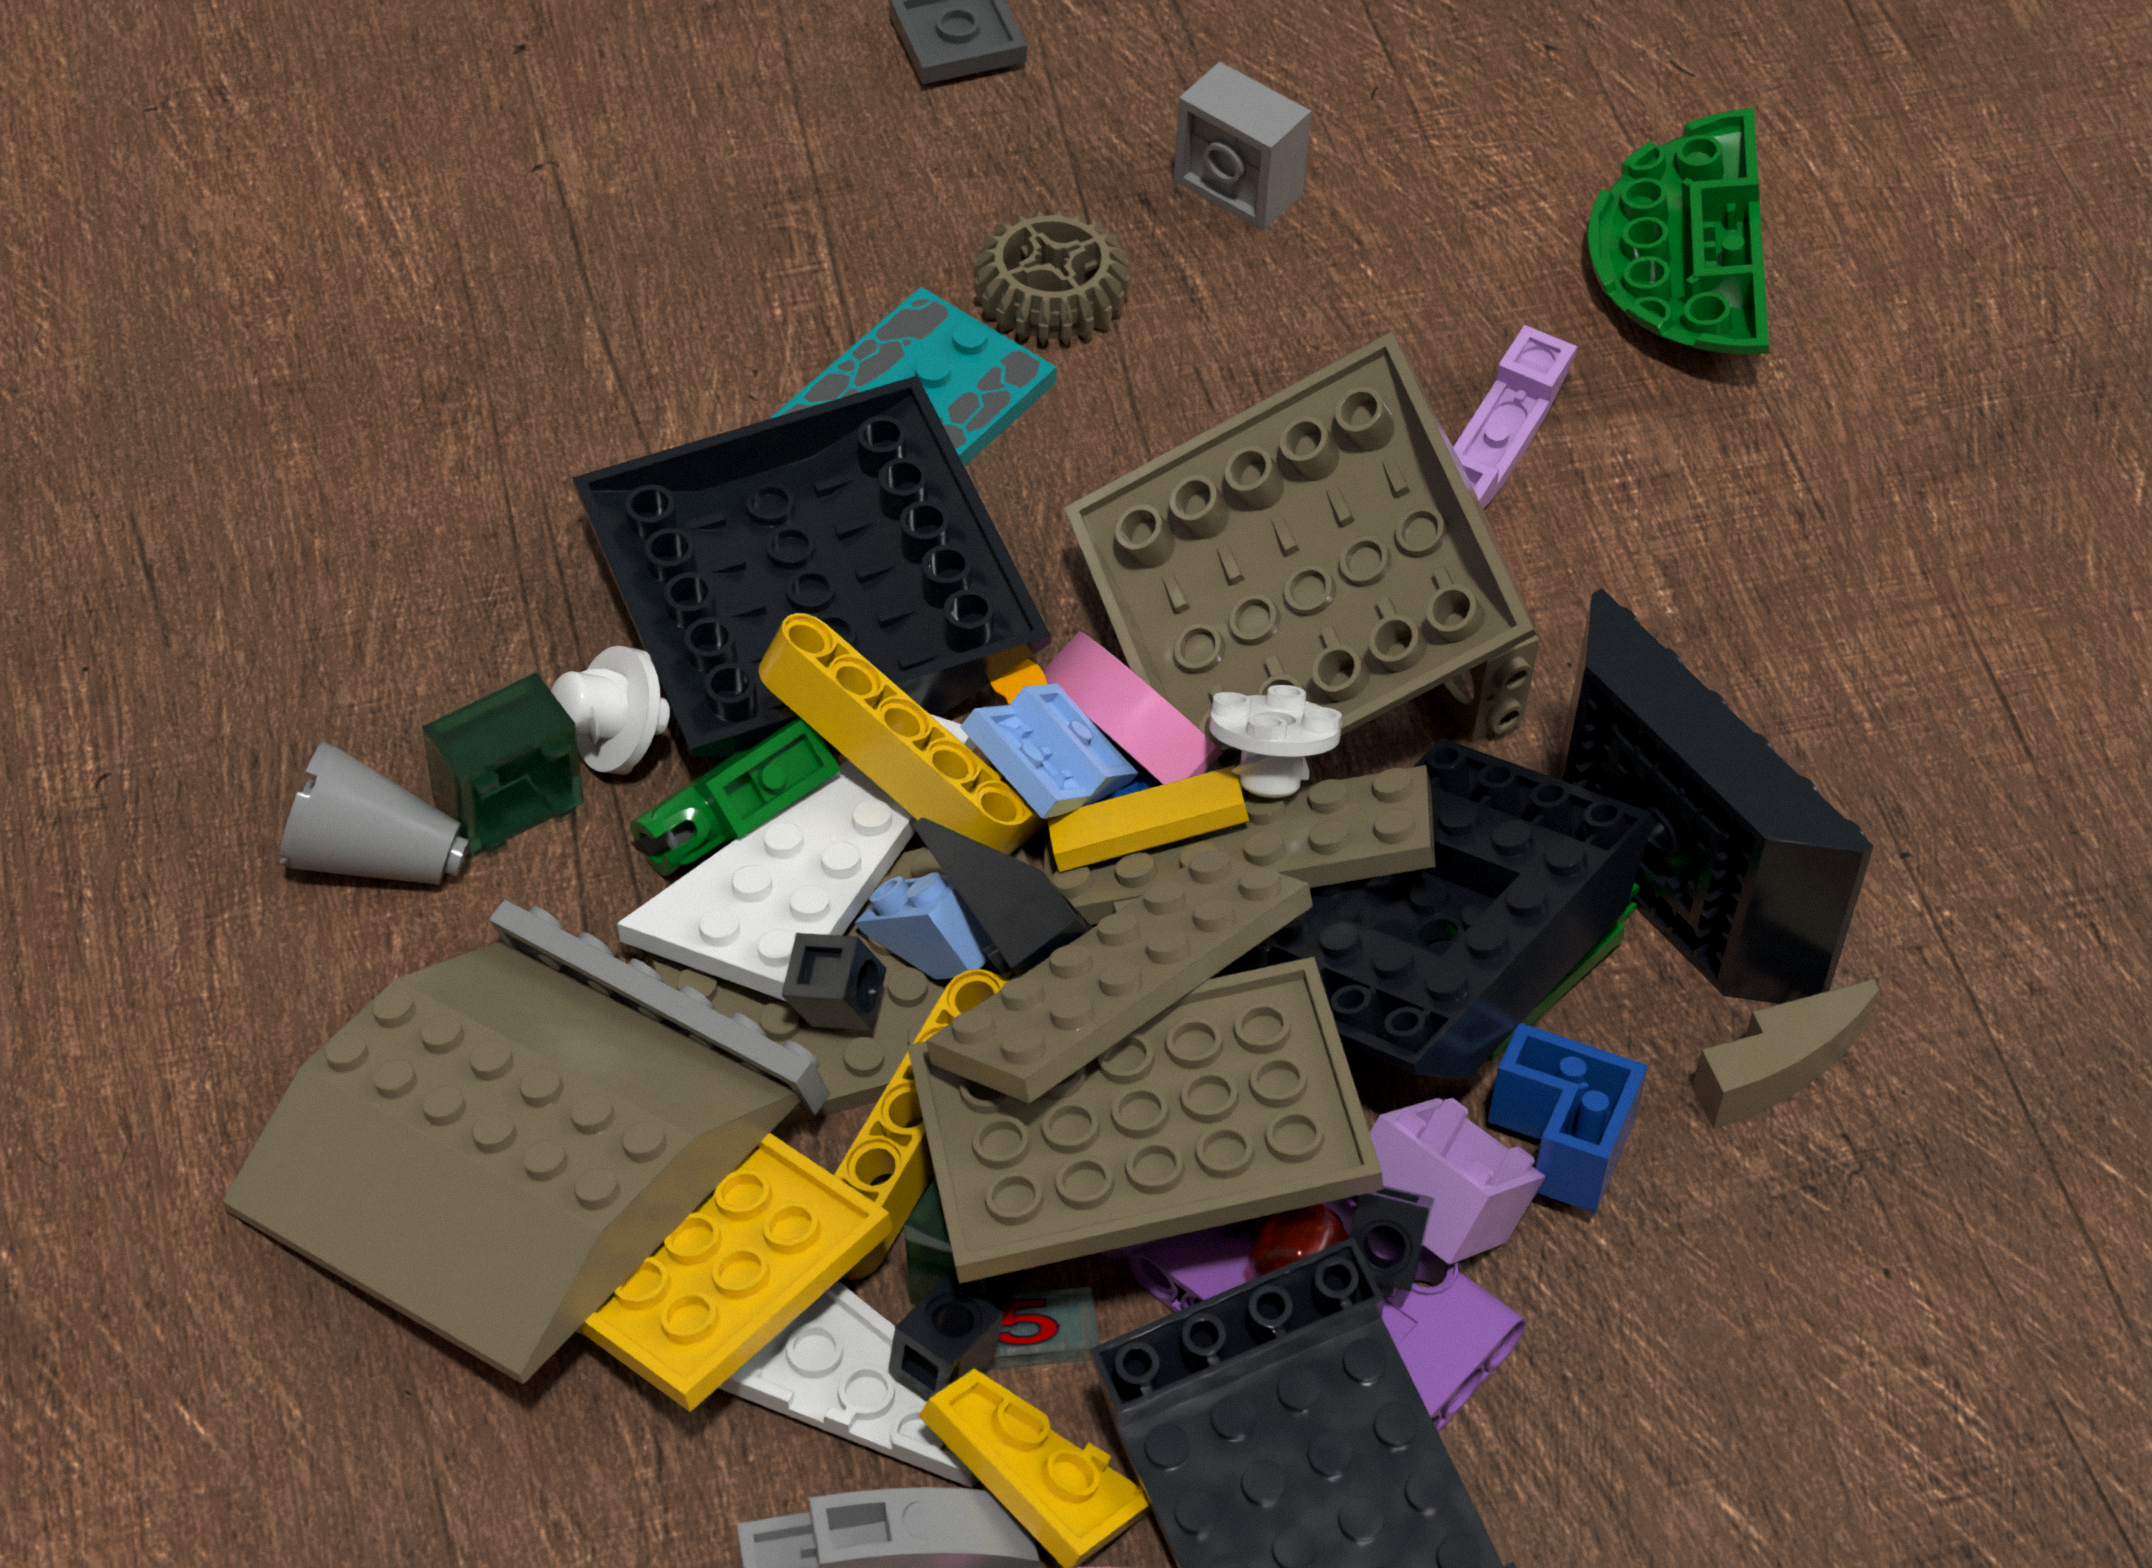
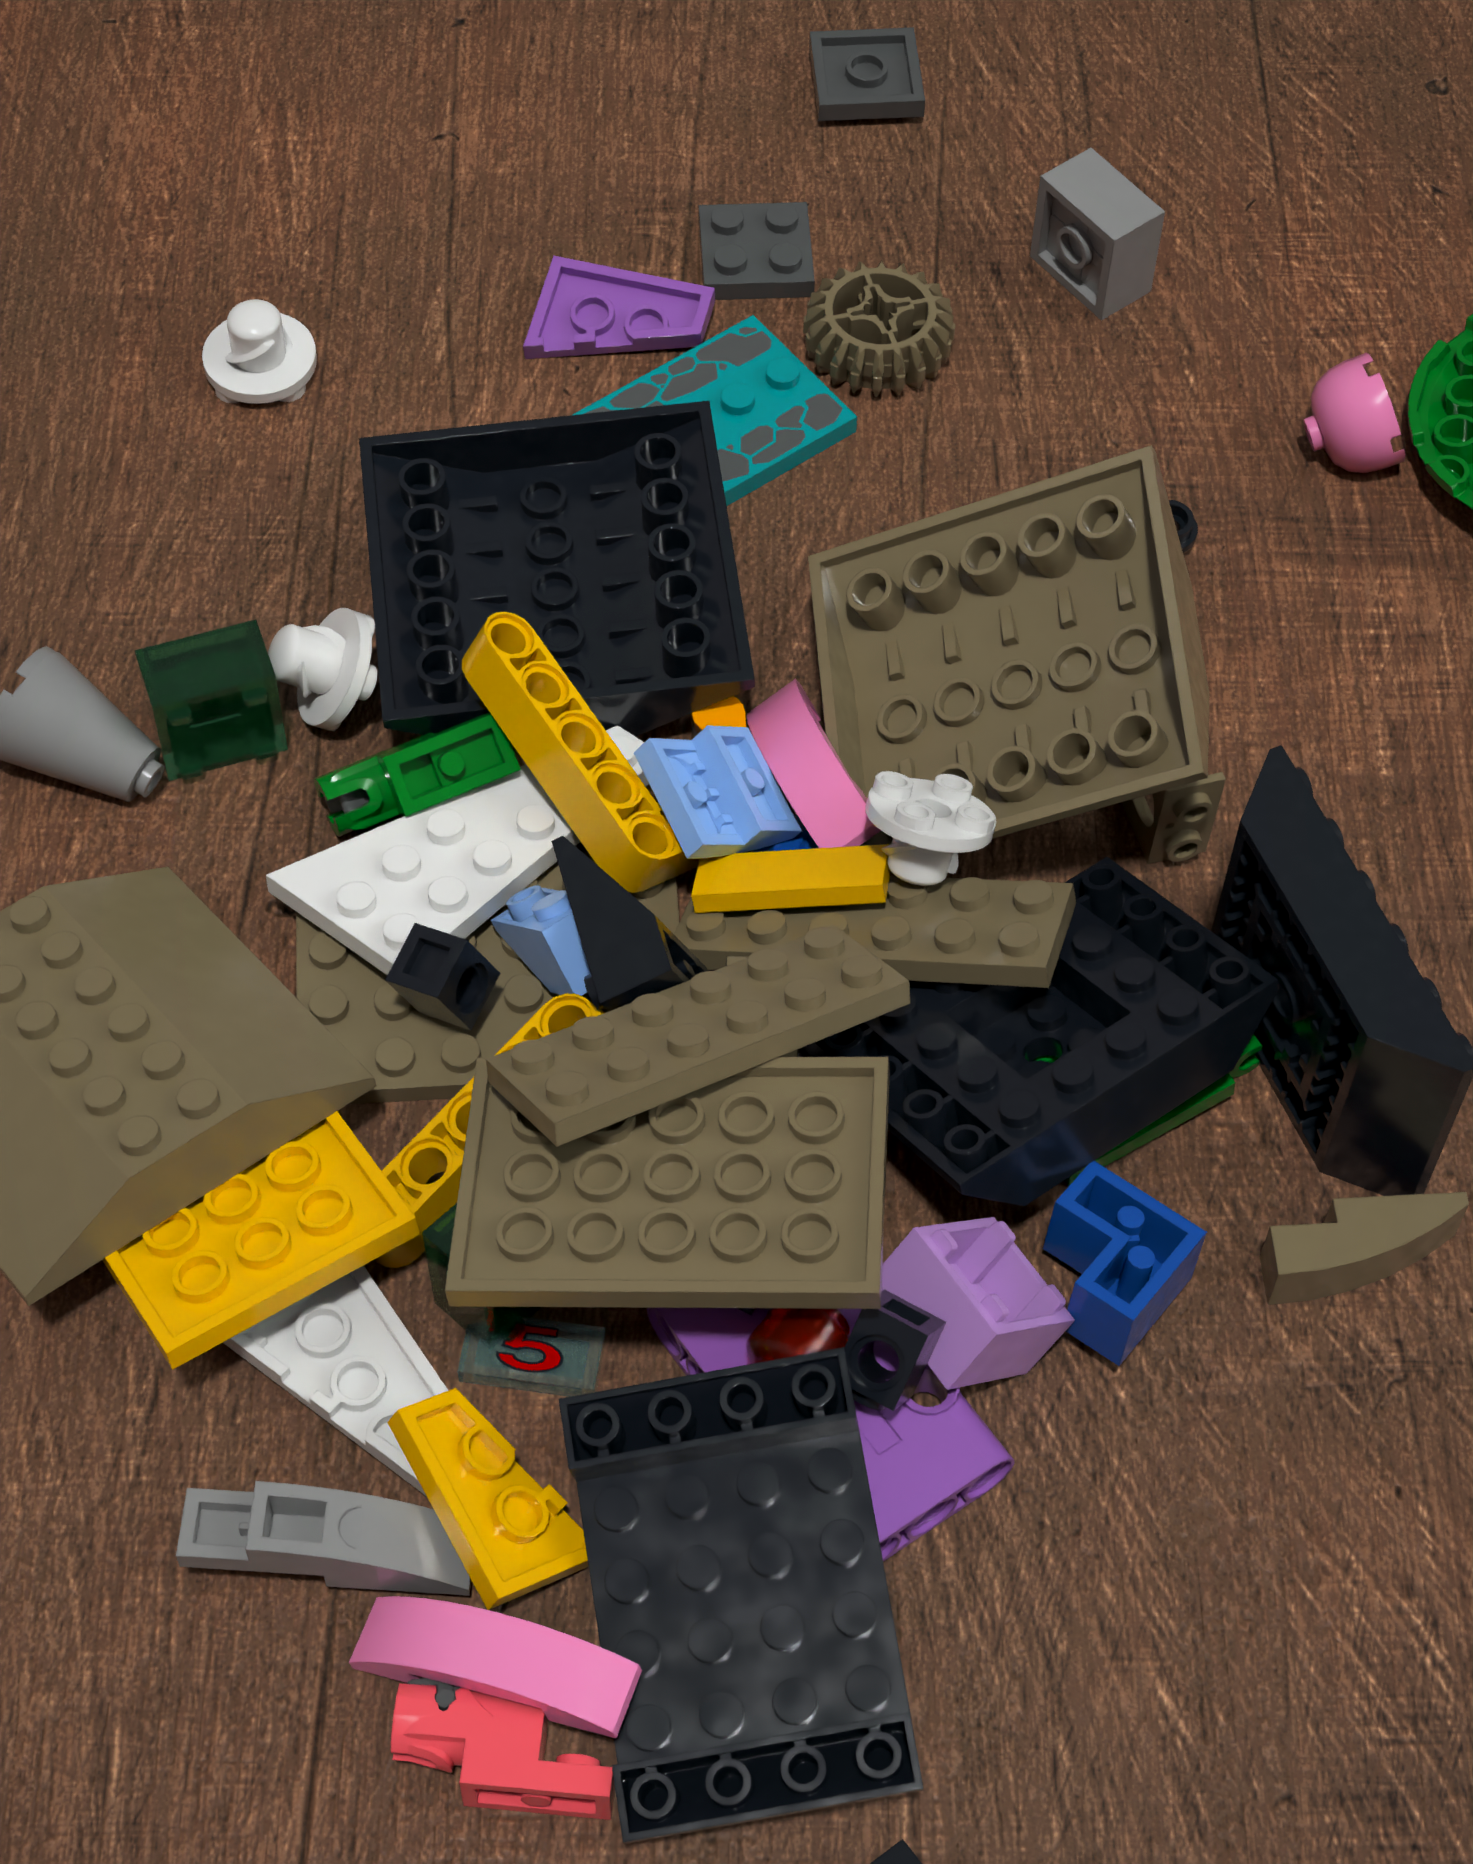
camera: 15 degrees right, 5 degrees up
(427, 418) = (259, 355): none -> white plate
(645, 990) = (298, 973): light grey plate -> none
(780, 307) = (613, 311): none -> medium lavender wing
(901, 223) = (756, 250): none -> dark grey plate
(945, 1337) = (426, 1373): black brick -> none
(1513, 409) = (1275, 553): lavender slope -> none
(1545, 278) = (1353, 418): none -> bright pink cylinder

